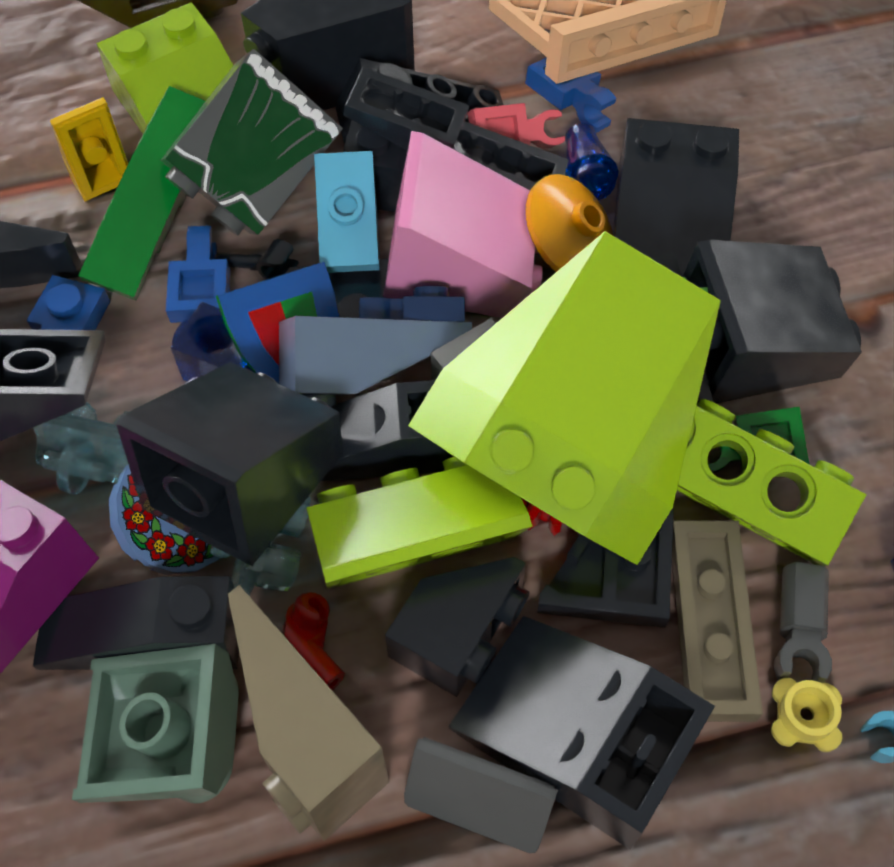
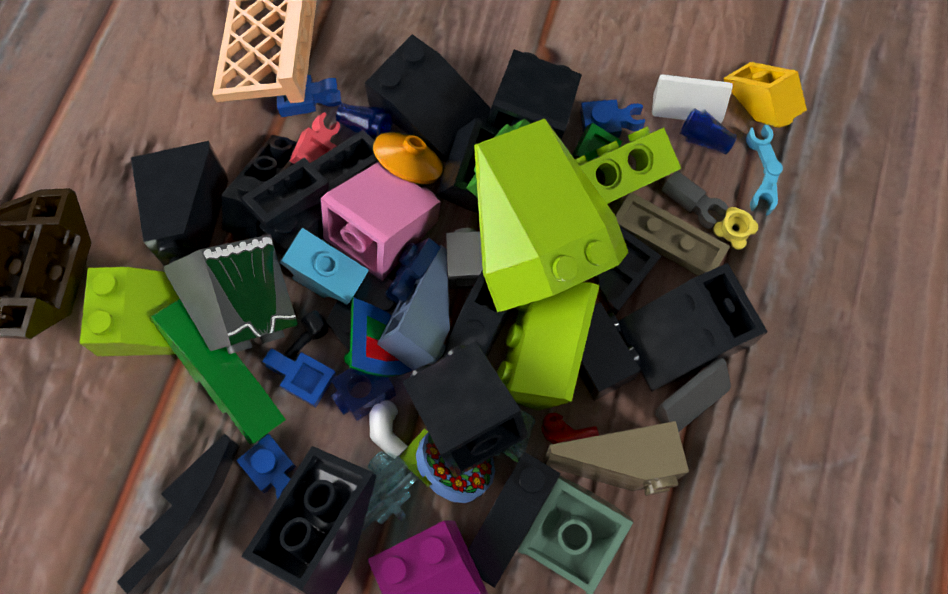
camera: 60 degrees left, 10 degrees up
(90, 148) = (166, 390): yellow slope -> none
(838, 436) = (609, 117): none -> blue plate

